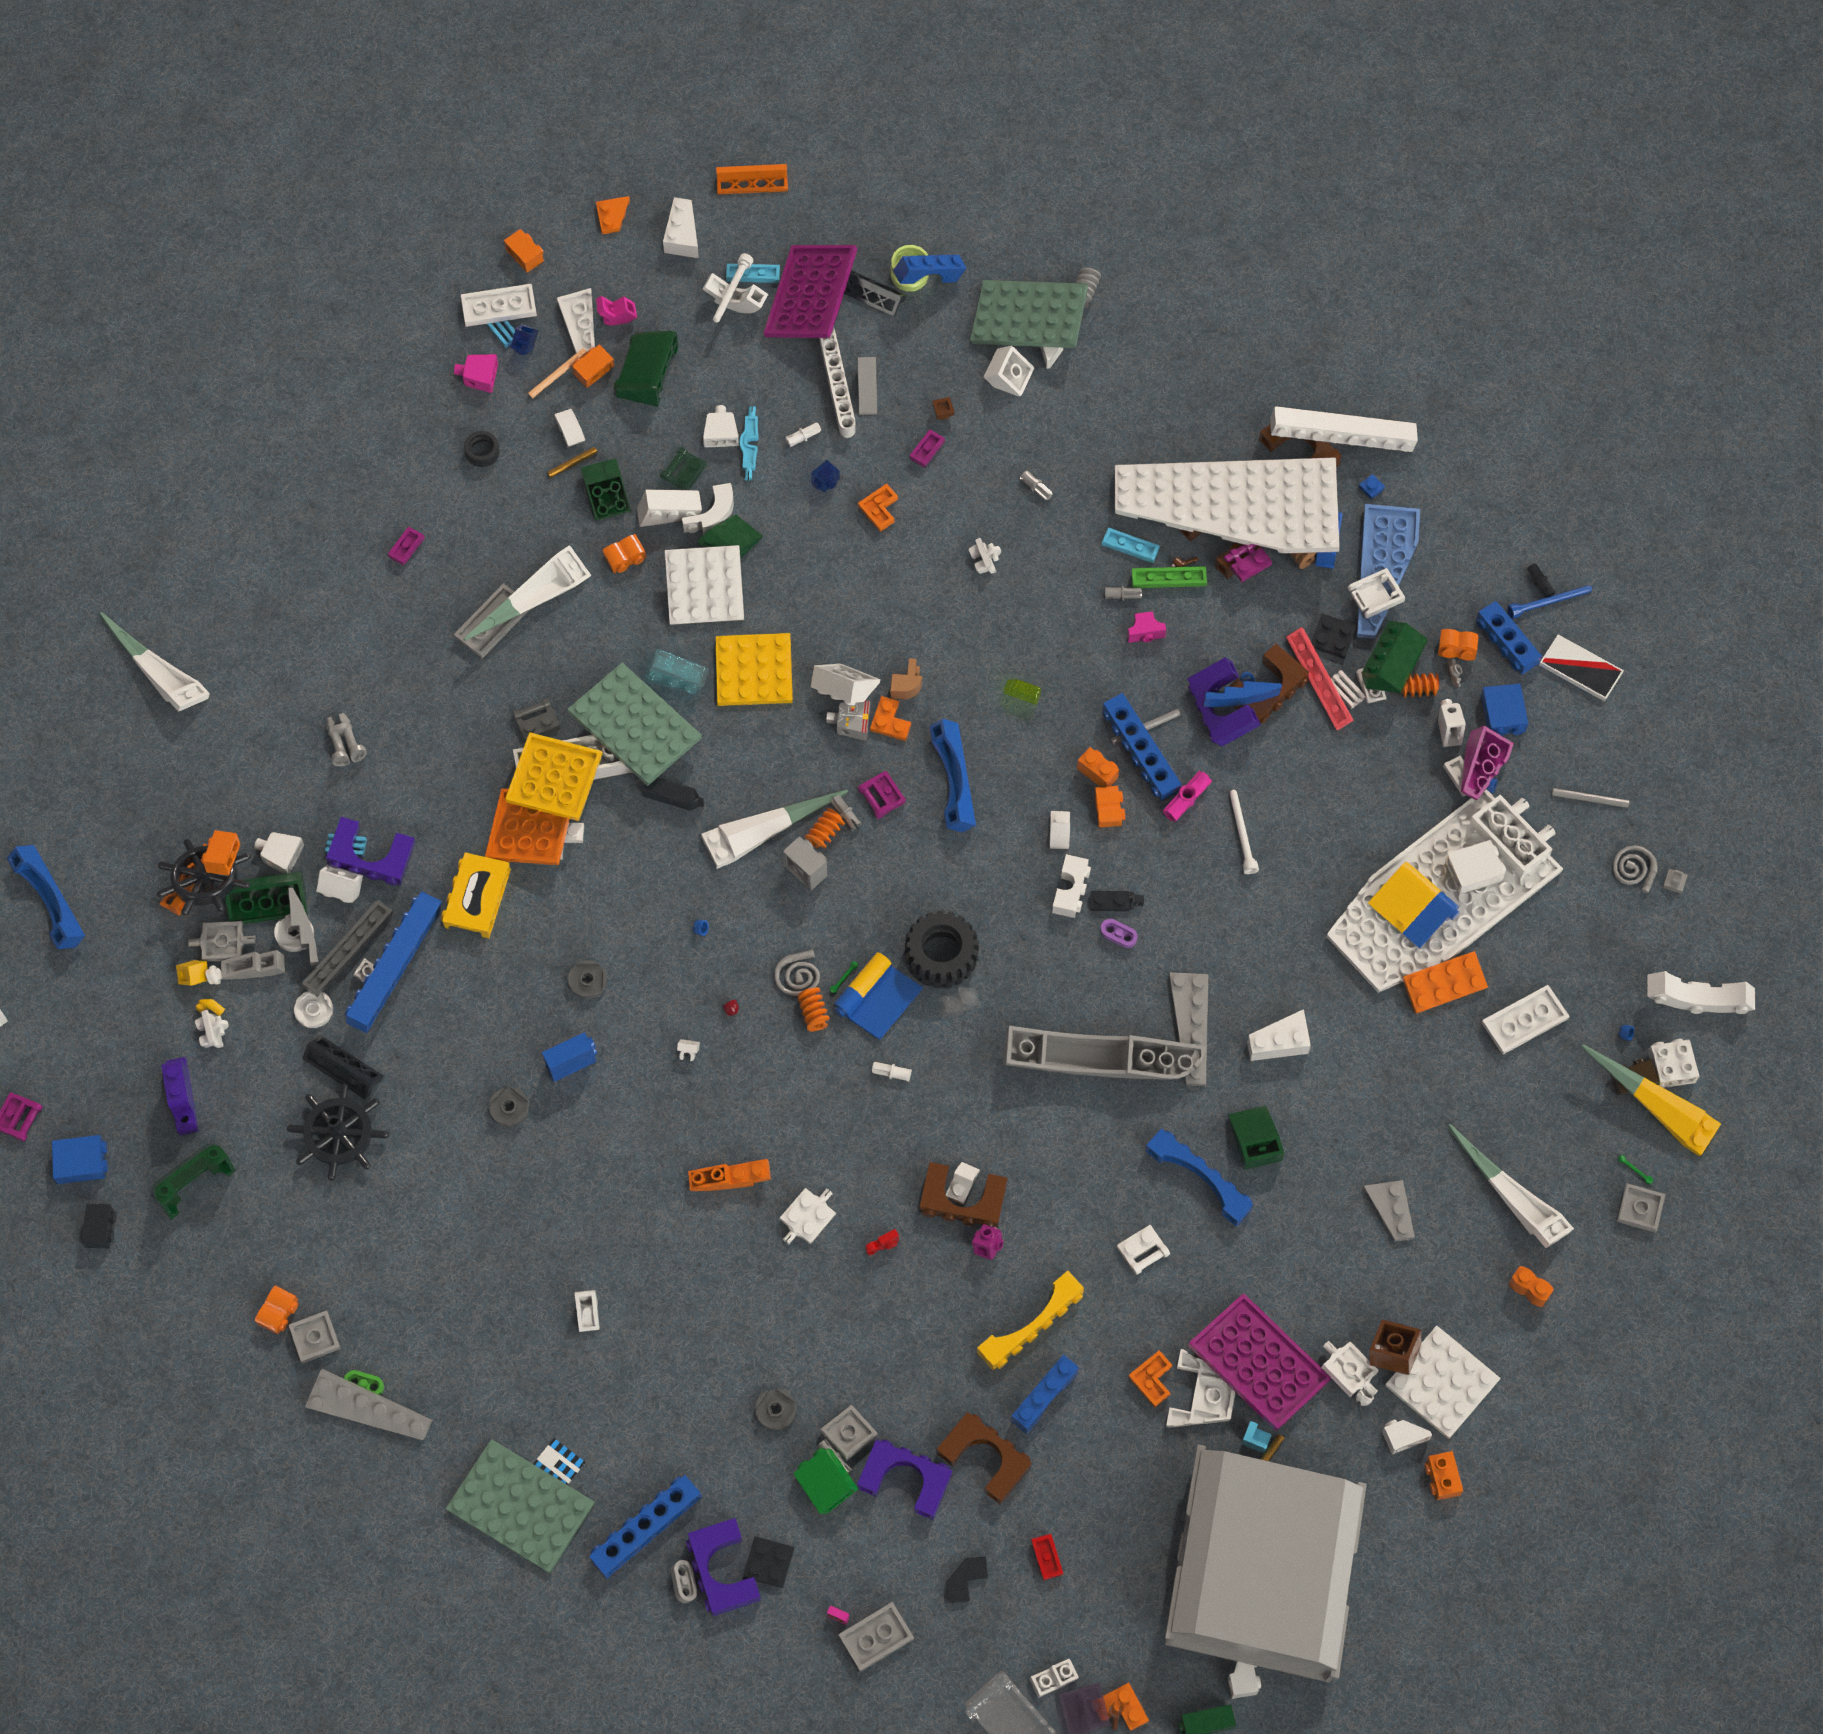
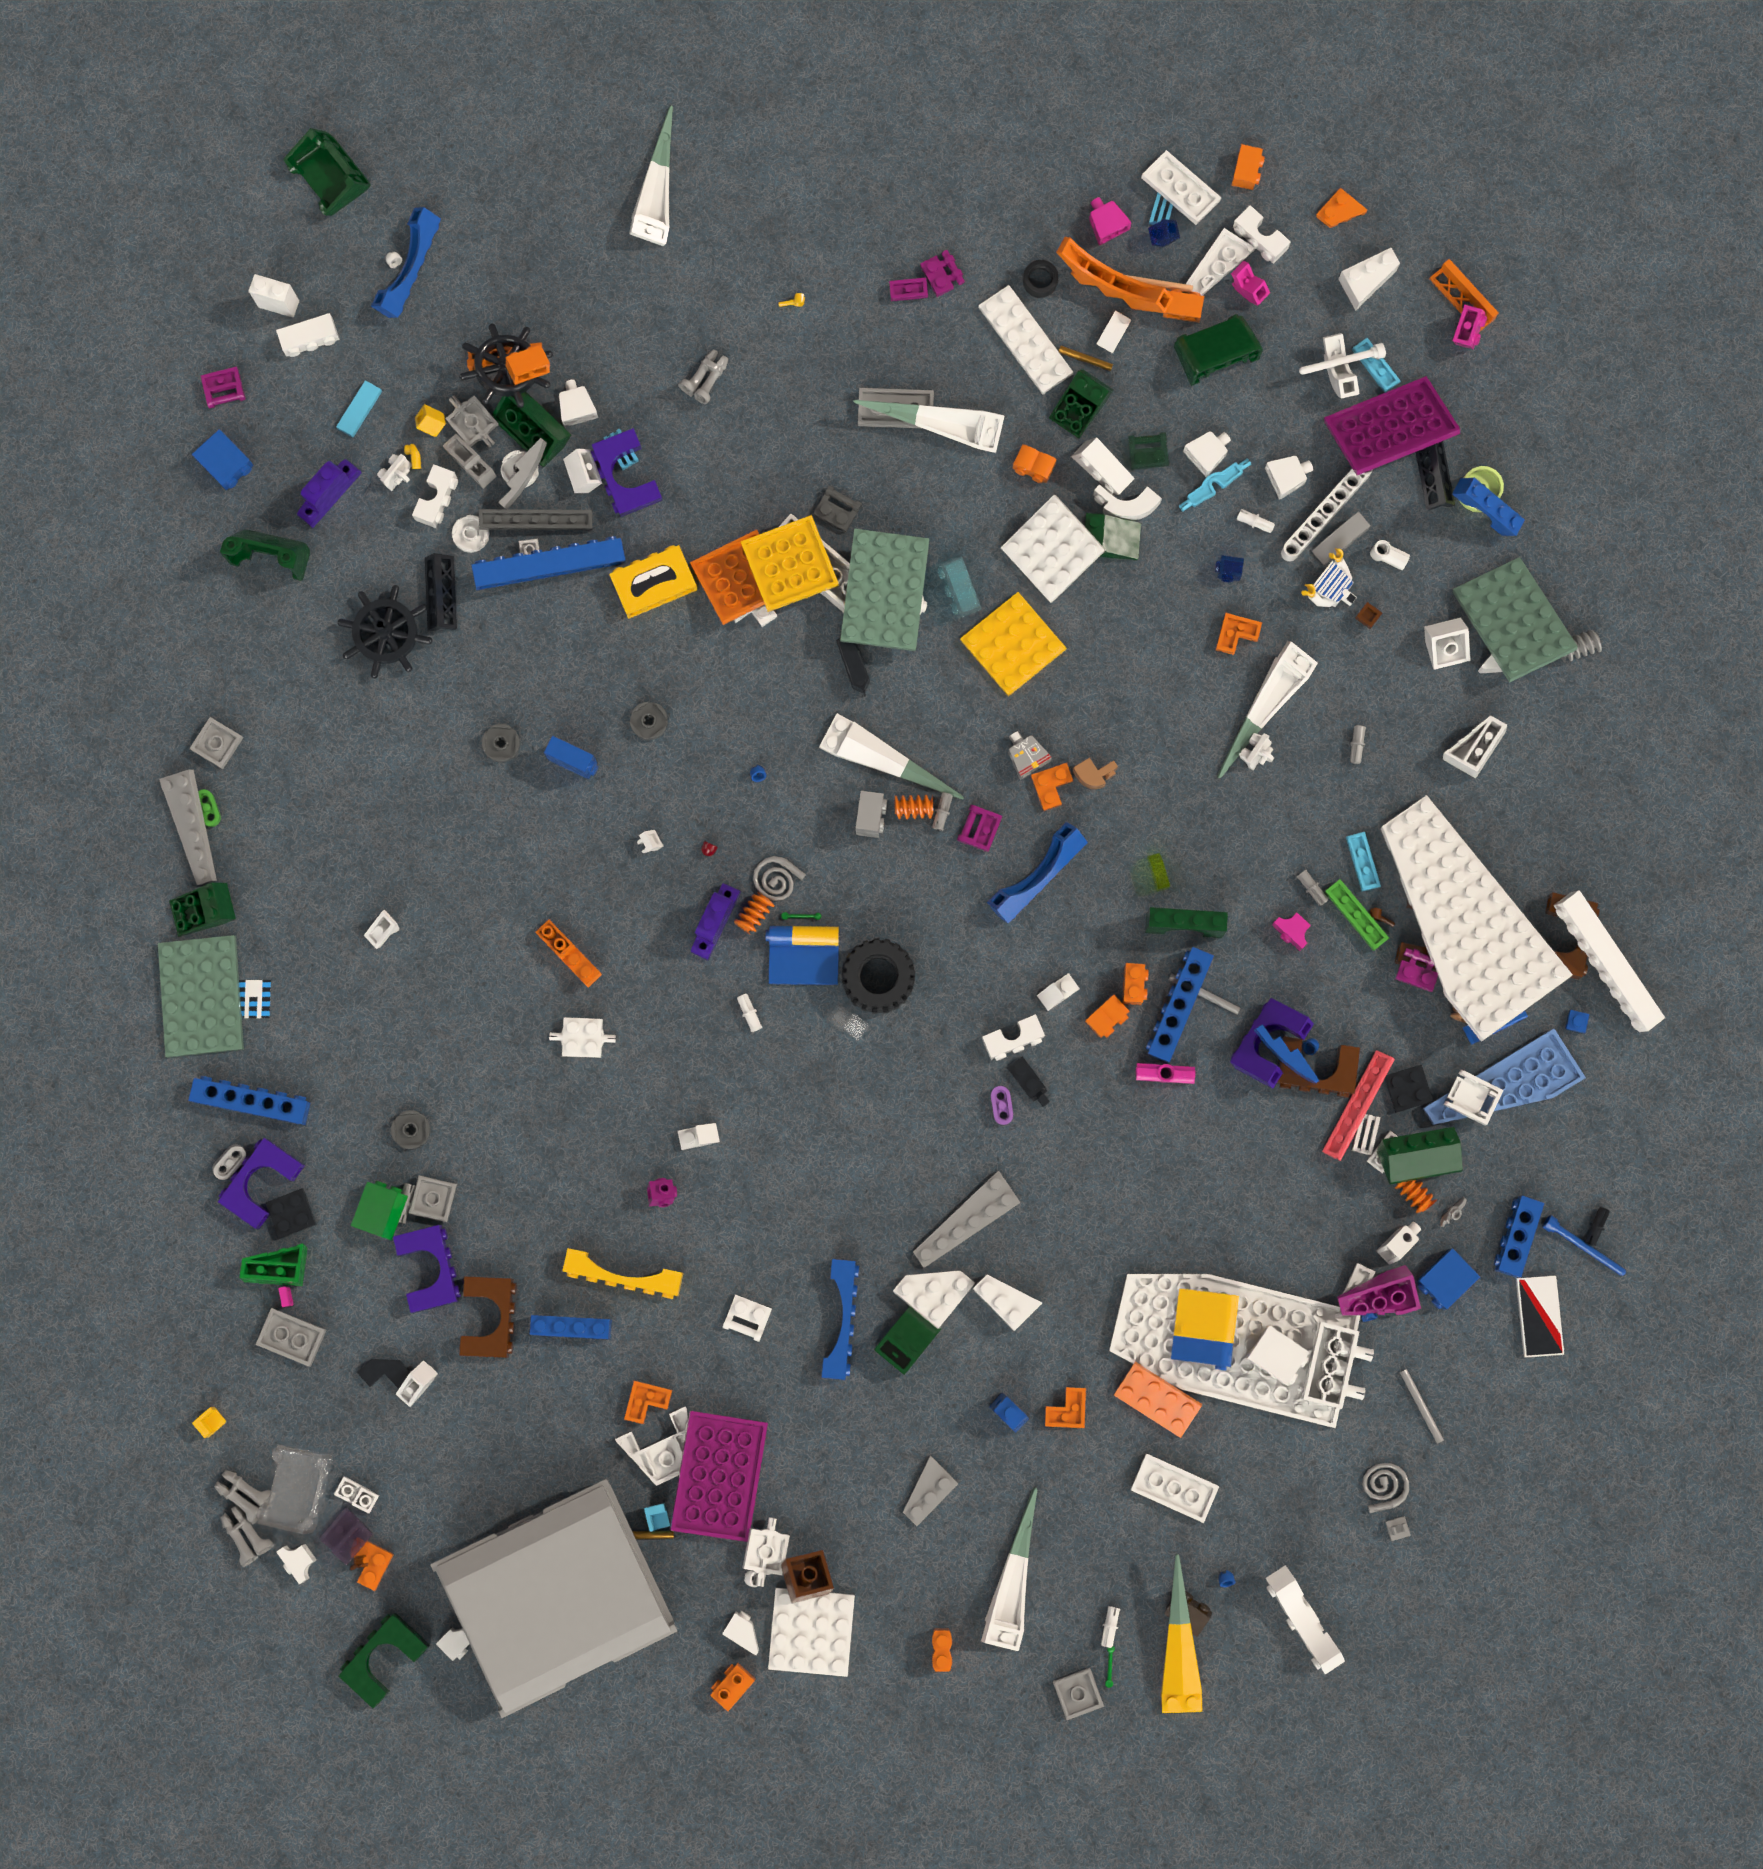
camera: 55 degrees right, 15 degrees up
(32, 907) = (393, 259): none -> white hinge
(35, 1017) = (308, 335): none -> white brick
(98, 1226) = (183, 516): black brick -> none
(132, 1022) = (359, 409): none -> medium azure tile
(214, 975) = (439, 438): white plate -> none
(252, 998) = (431, 511): none -> white arch
(276, 1310) = (215, 699): orange brick -> none
(343, 632) = (798, 301): none -> yellow hand
(416, 520) = (937, 276): none -> magenta plate
(446, 1450) = (202, 908): none -> dark green slope
(520, 493) = (1025, 339): none -> white plate
(554, 390) = (1112, 283): none -> orange arch
(598, 278) = (1271, 246): none -> white arch
(780, 190) = (1469, 326): none -> dark pink brick
(786, 388) = (1287, 474): none -> white torso
(796, 1042) = (714, 920): none -> dark purple brick
(808, 1604) = (276, 1267): none -> green wedge
(843, 683) = (1051, 725): white slope -> none
(886, 1241) = (606, 1115): red plate -> none
(897, 414) = (1332, 584): none -> torso
(908, 363) = (1391, 555): none -> white piece
(927, 448) = (1322, 630): magenta plate -> none
(935, 1202) = (665, 1127): reddish brown arch -> none
(943, 497) = (1283, 679): none -> white plate
(997, 1557) = (416, 1383): none -> white slope
(1047, 1557) = (445, 1421): red plate -> none
(1093, 679) = (1211, 923): none -> dark green arch
(1100, 1055) = (880, 1168): light grey slope -> none
(1106, 406) = (1476, 748): none -> white wedge
(1233, 1090) = (934, 1293): none -> white plate
(1250, 865) = (1143, 1167): white piece -> none
(1374, 1099) = (1009, 1412): none -> blue torso
(1408, 1055) = (1072, 1414): none -> orange plate
(1458, 644) = (1478, 1198): orange brick -> none
(1603, 1145) = (1110, 1627): none -> white axle
(1674, 1063) = (1225, 1637): white brick -> none

